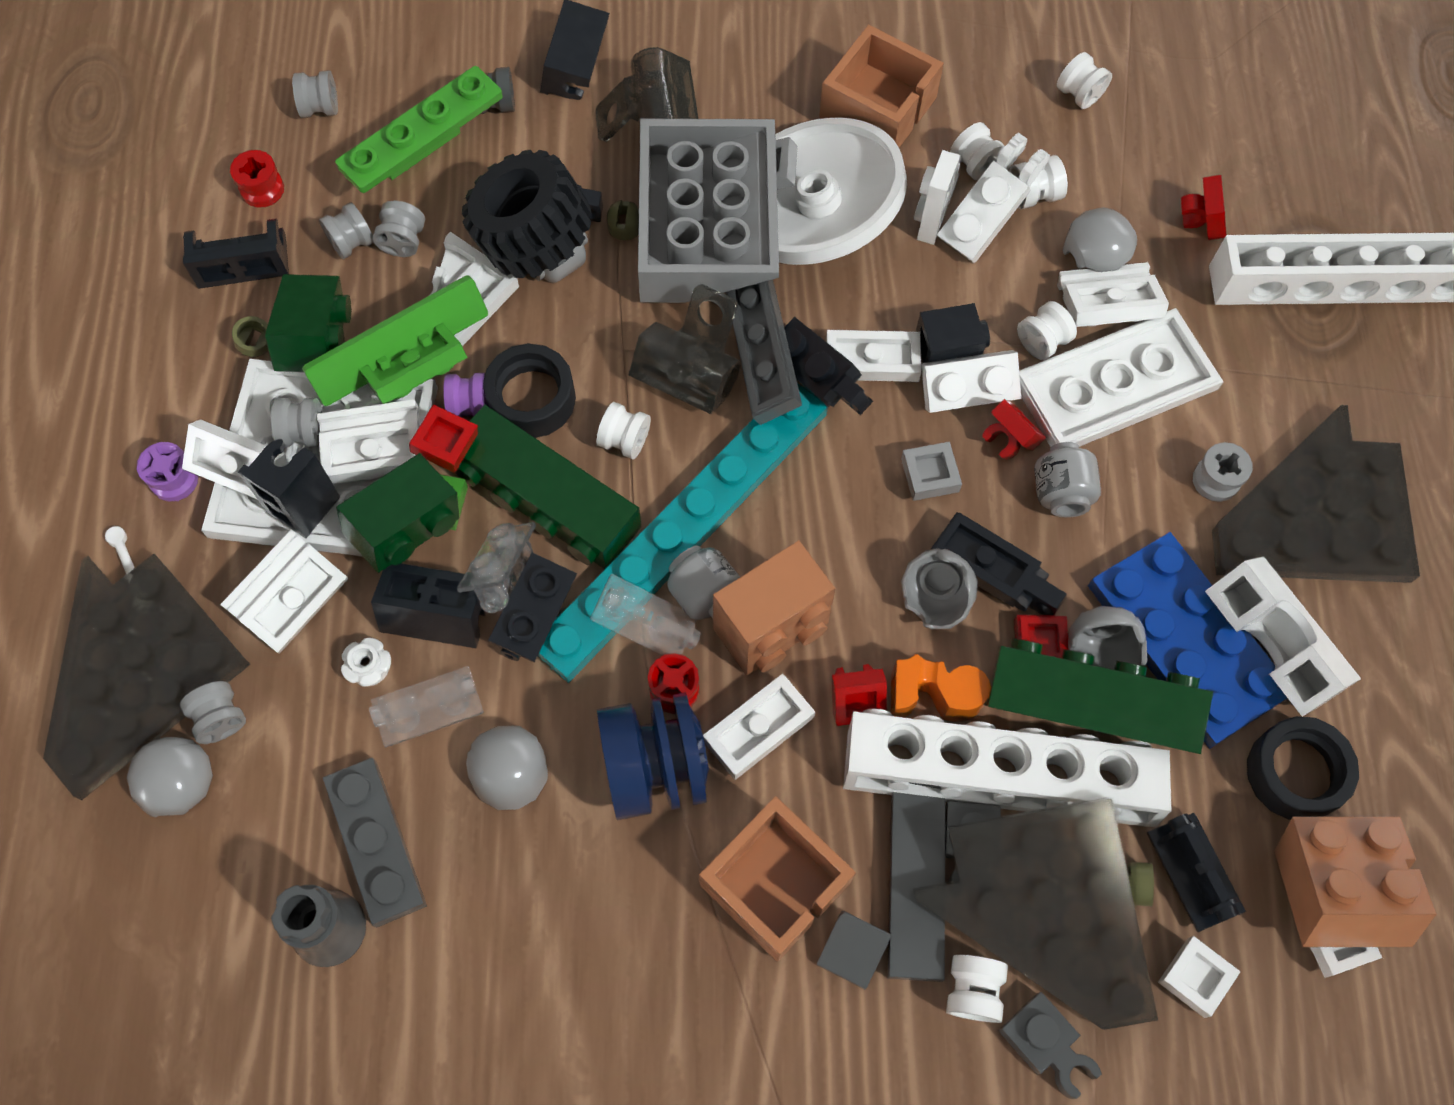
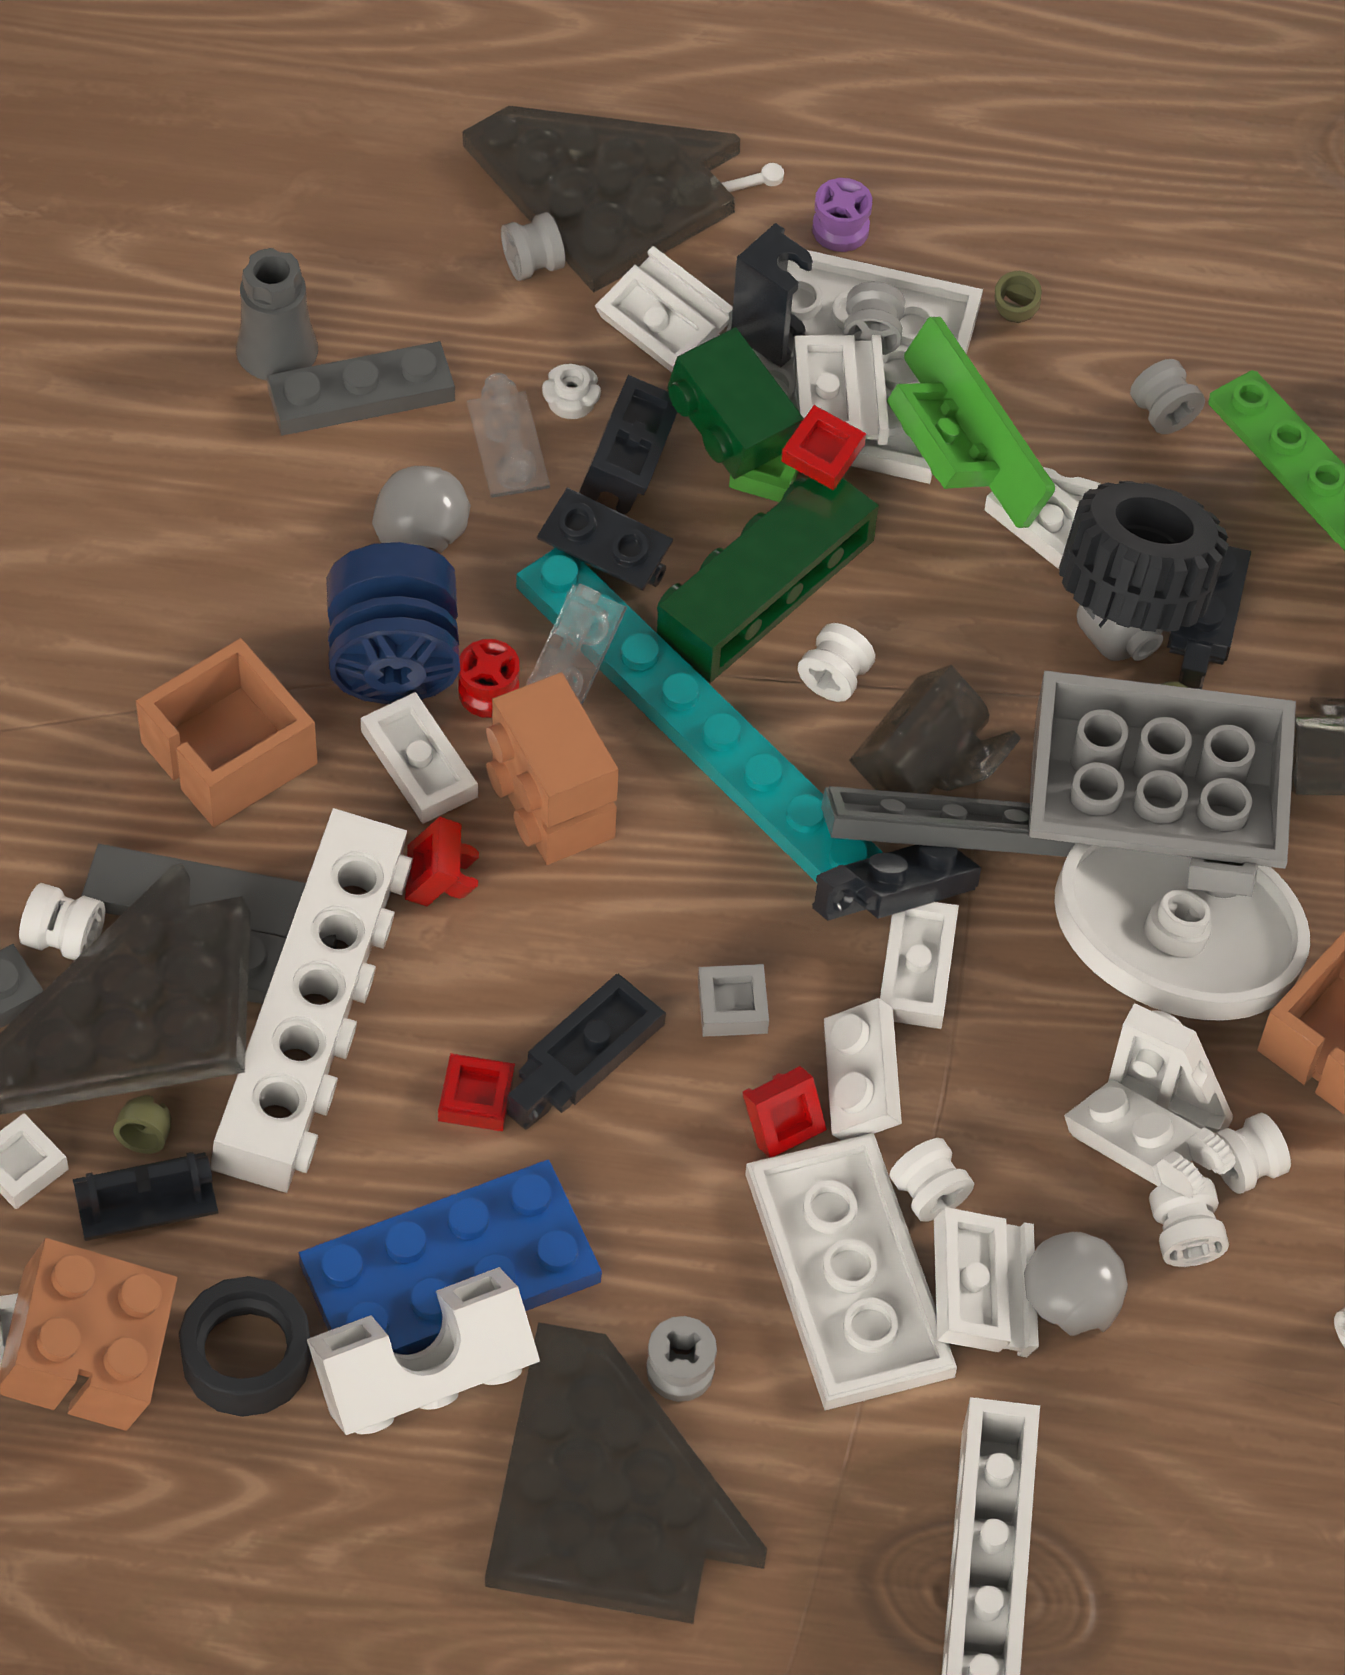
camera: 95 degrees right, 10 degrees down
(169, 776) = (468, 210): light grey hair -> none
(221, 454) = (834, 252): white plate -> none
(236, 258) = (1144, 287): black hinge -> none
(268, 184) = (1248, 321): red wheel -> none
(306, 320) = (1023, 340): dark green brick -> none
(399, 228) = (1165, 450): light grey wheel -> none
(464, 395) = (906, 503): medium lavender wheel -> none
(498, 565) = (645, 490): clear hinge -> none
(526, 359) = (915, 534): black tyre -> none
(696, 577) = (620, 714): light grey head -> none
(853, 949) = (139, 817): dark grey slope -> none
(939, 588) = (561, 973): light grey hair -> none
(952, 333) = (931, 1055): black brick -> none
(954, 694) = (422, 961): orange leg -> none
(1067, 480) = (694, 1154): light grey head -> none
(1100, 698) = (376, 1110): dark green brick -> none
(1110, 636) = (454, 1146): light grey hair -> none
(1207, 208) = (1123, 1451): red tile -> none

